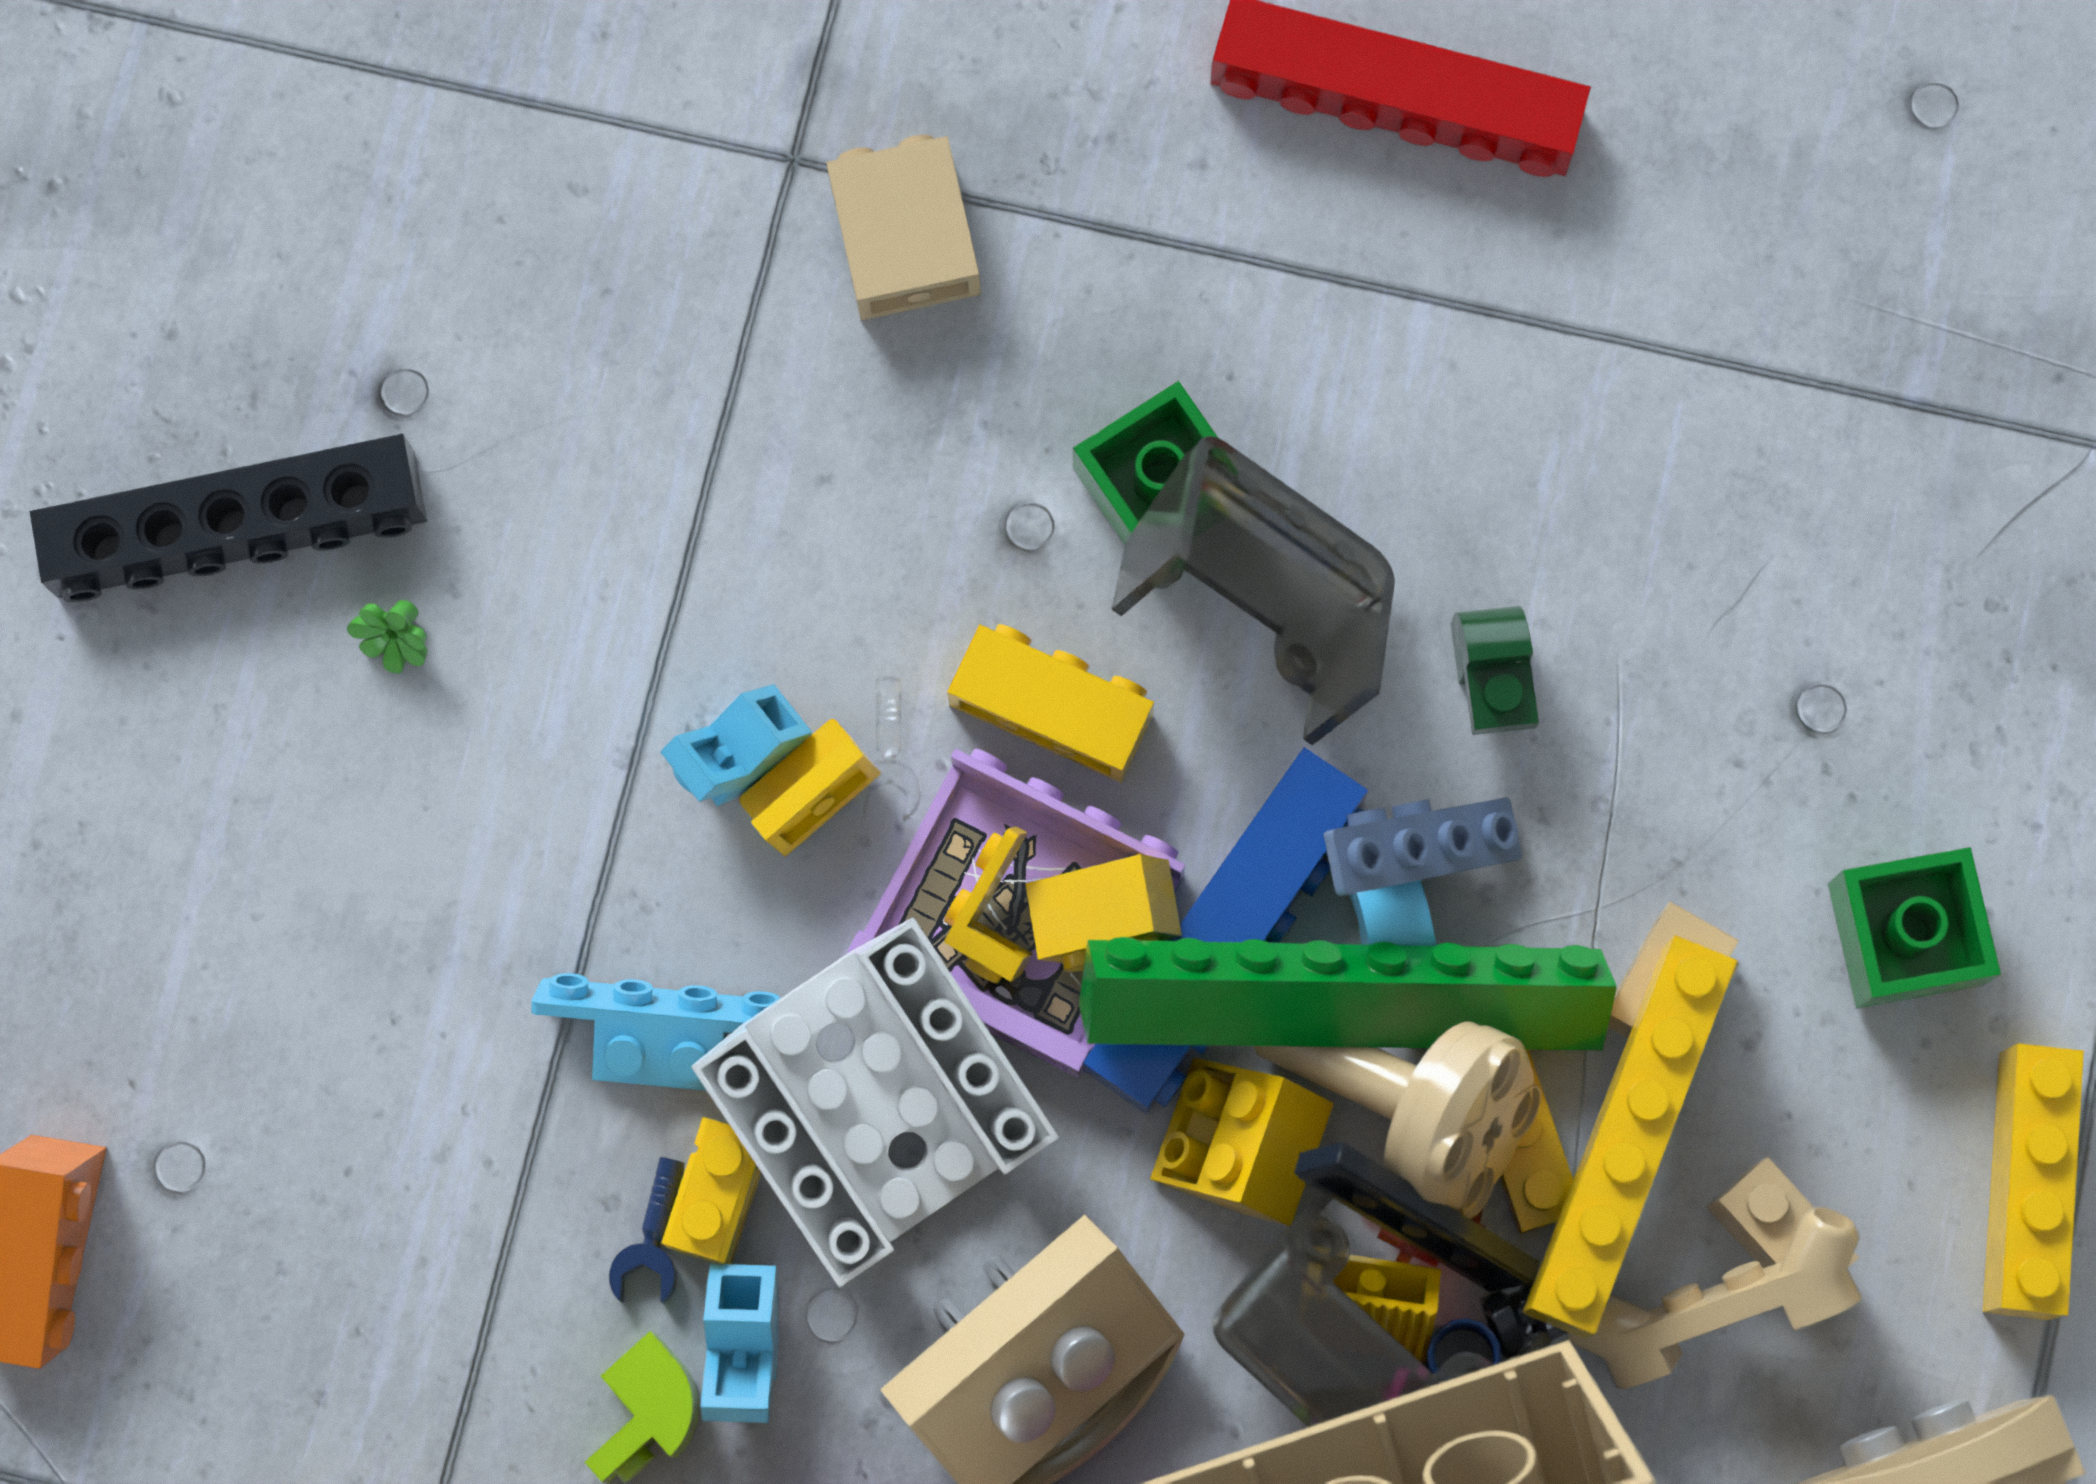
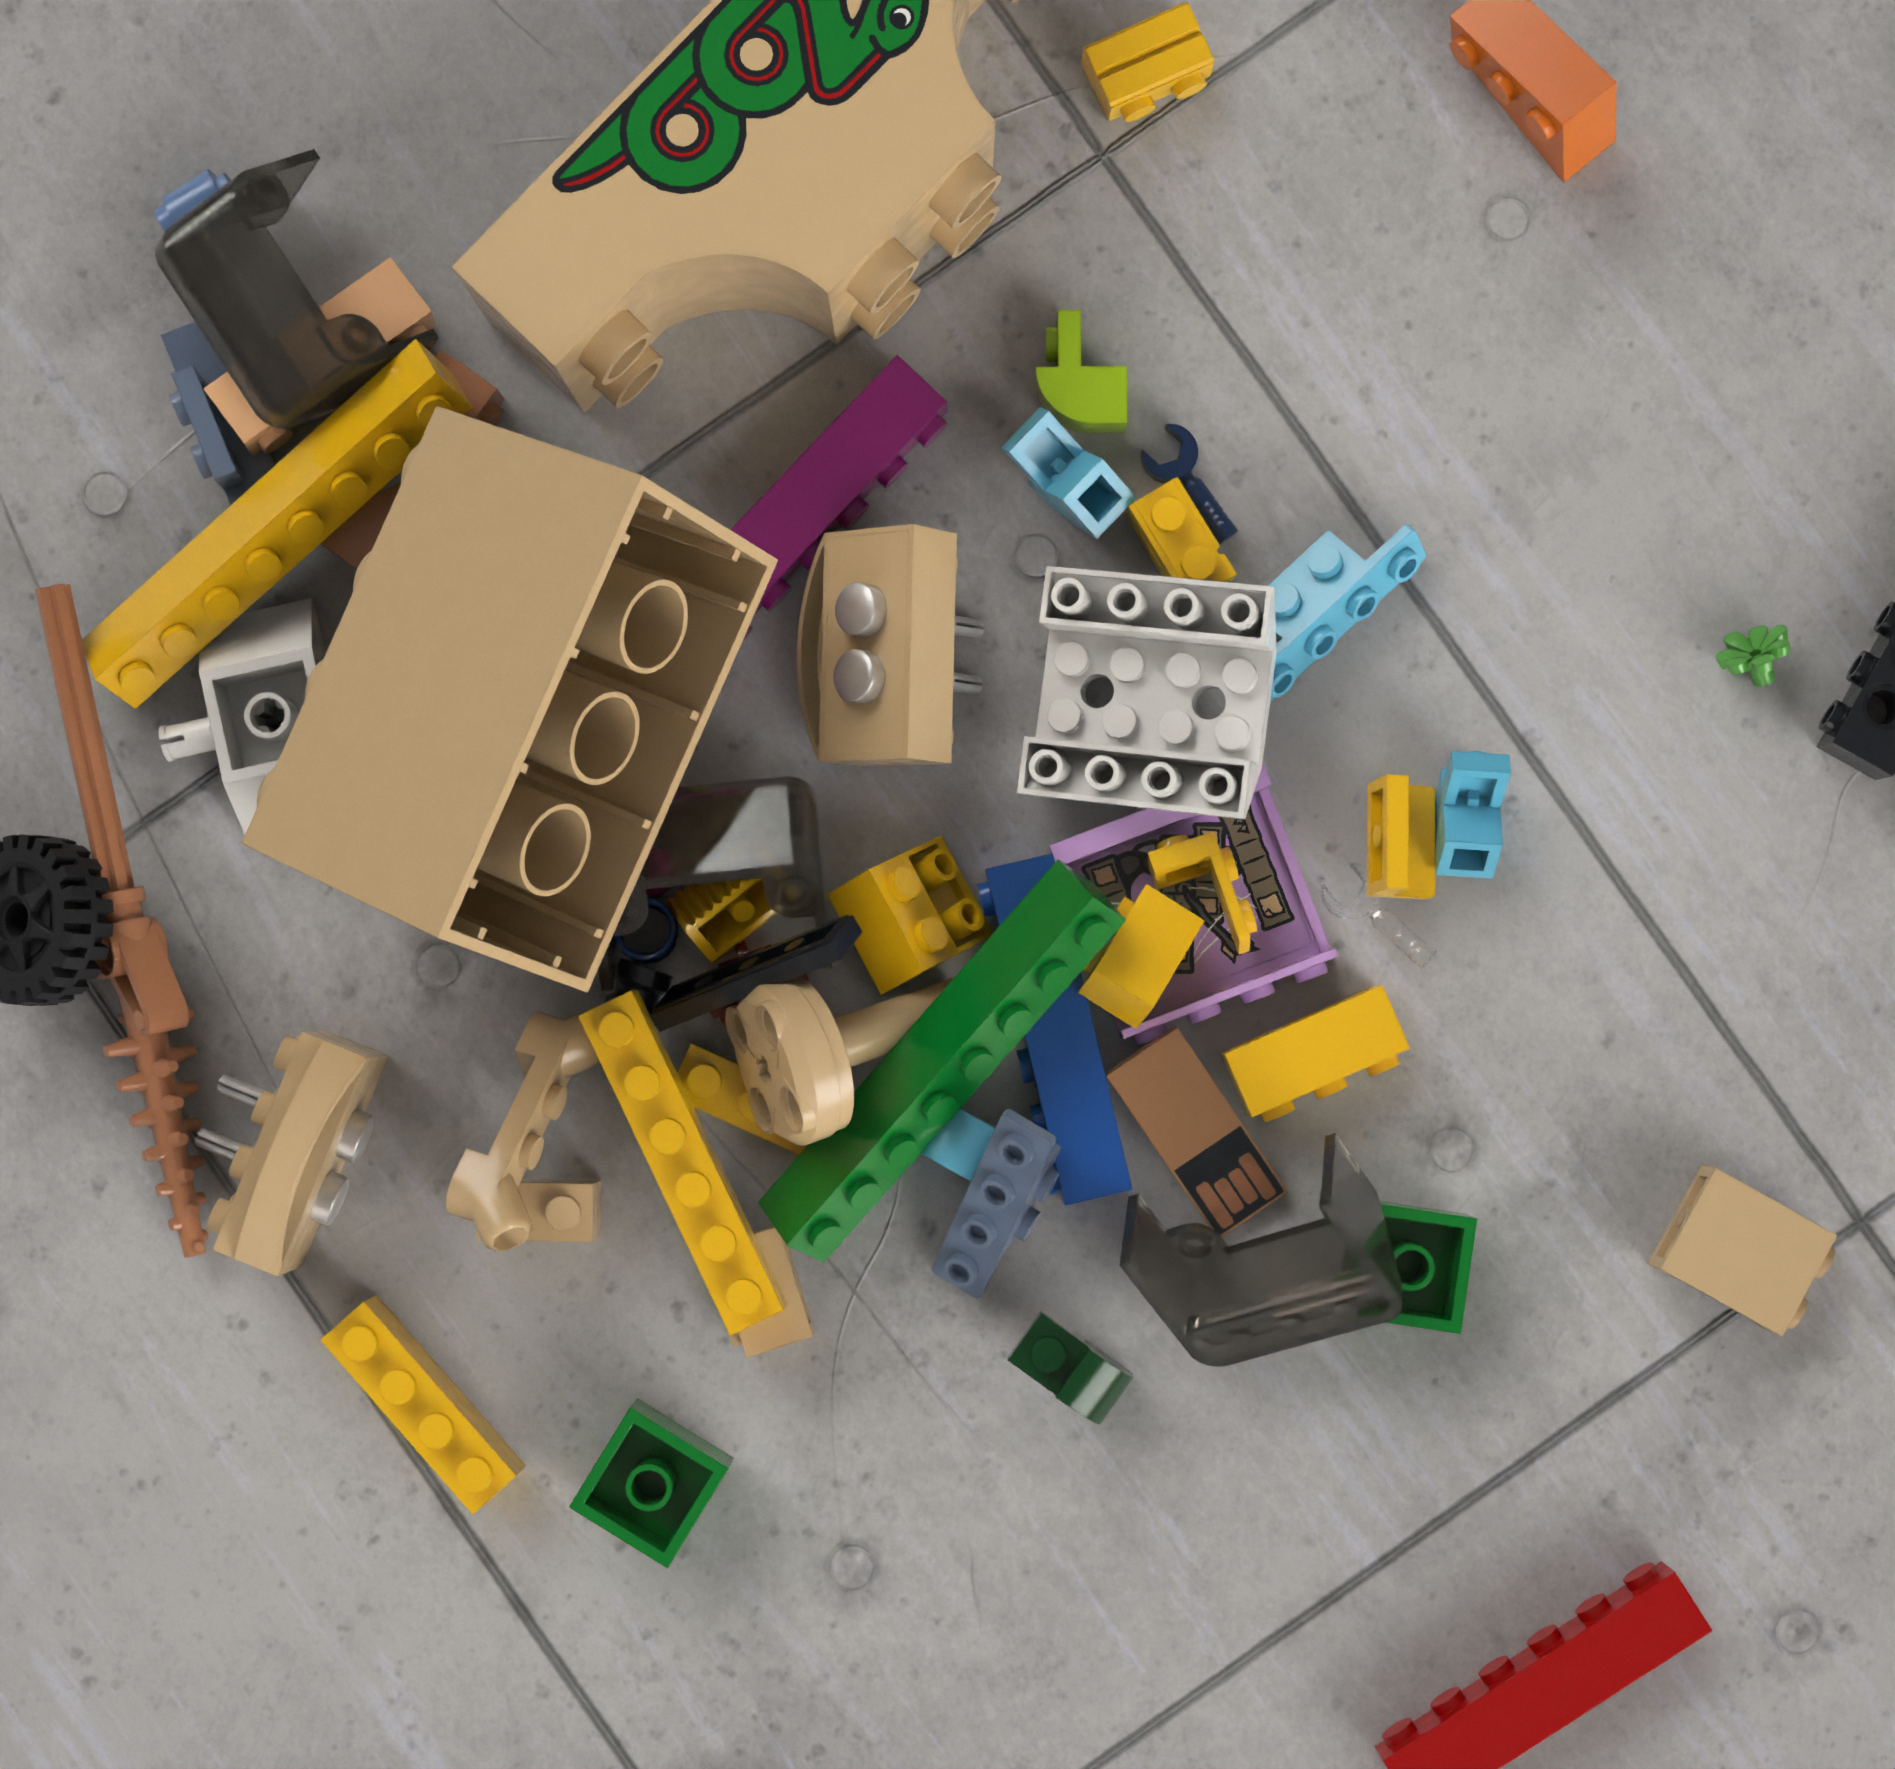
camera: 130 degrees right, 10 degrees up
(1206, 741) = (1196, 1131): none -> medium nougat piece

